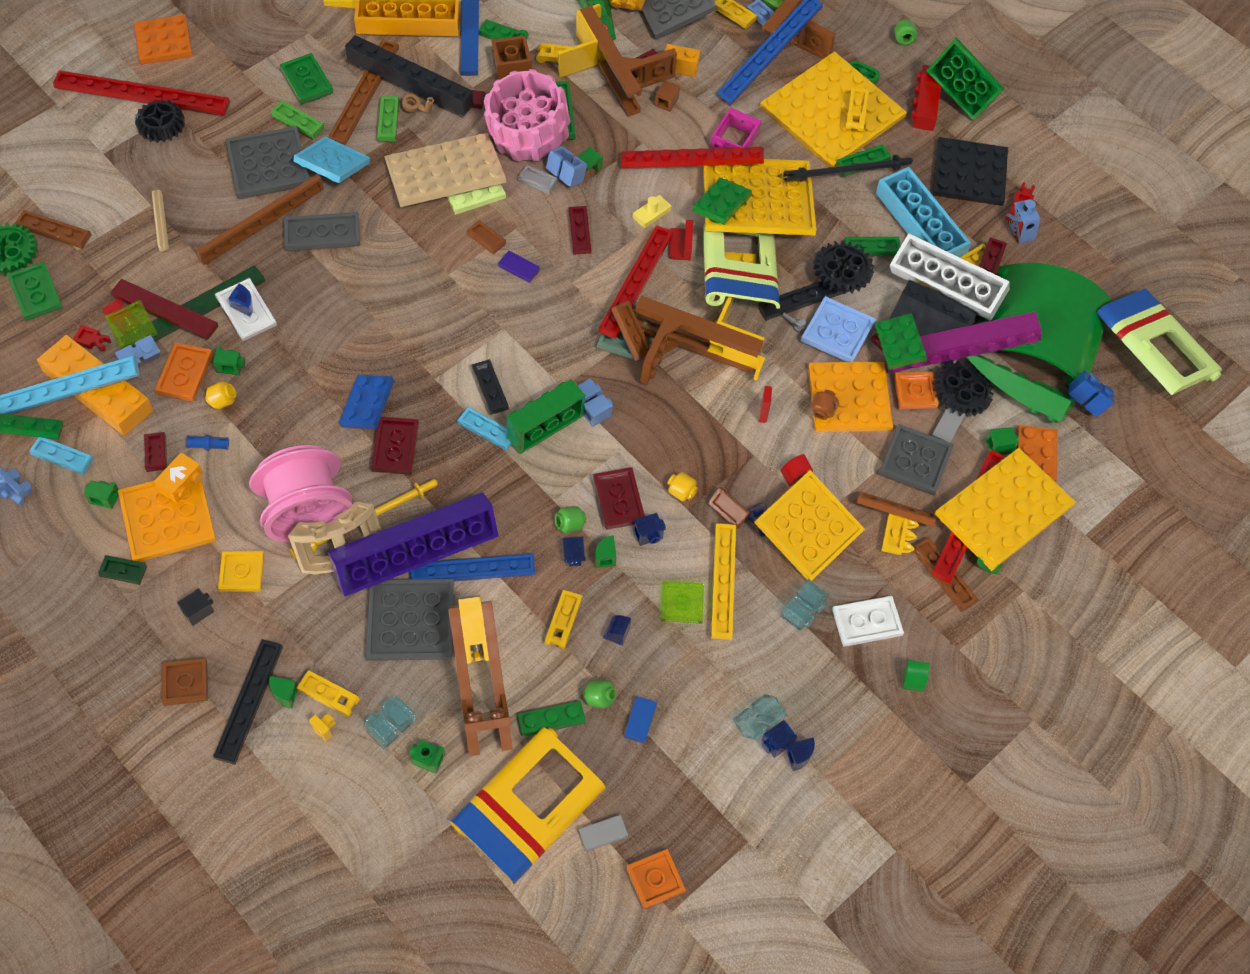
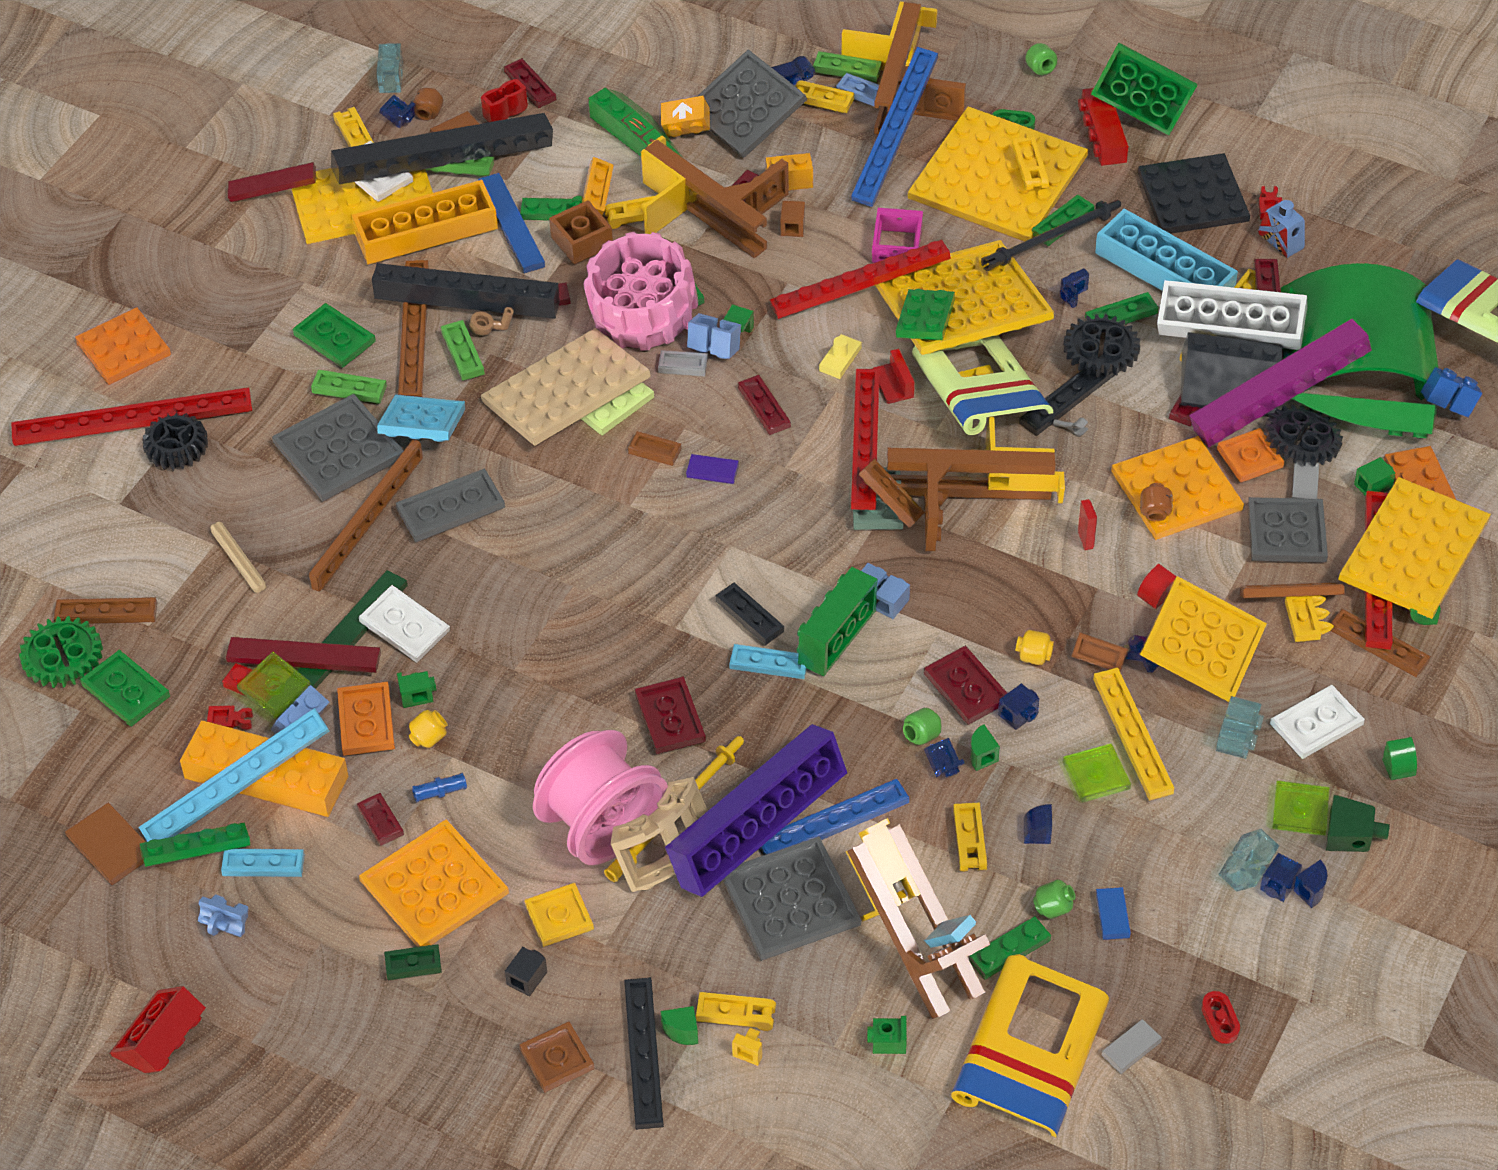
camera: 15 degrees left, 10 degrees down
(101, 494) = (340, 887): green brick -> none
(179, 478) = (432, 833): light orange brick -> none
(241, 300) = (400, 611): clear blue brick -> none
(366, 401) = (610, 678): blue plate -> none
(381, 729) = (826, 1010): clear light blue piece -> none
(492, 701) = (950, 931): none -> medium azure tile
(541, 27) = (598, 183): none -> light orange plate
(655, 879) = (1216, 1071): orange plate -> none
(680, 836) = (1220, 1019): none -> red plate
(822, 686) = (1300, 808): none -> clear neon green plate
(838, 330) = (1128, 418): light blue plate -> none
(846, 213) = (1073, 285): none -> clear blue bracket
(853, 717) = (1353, 826): none -> dark green torso
(900, 341) = (1209, 404): green plate -> none

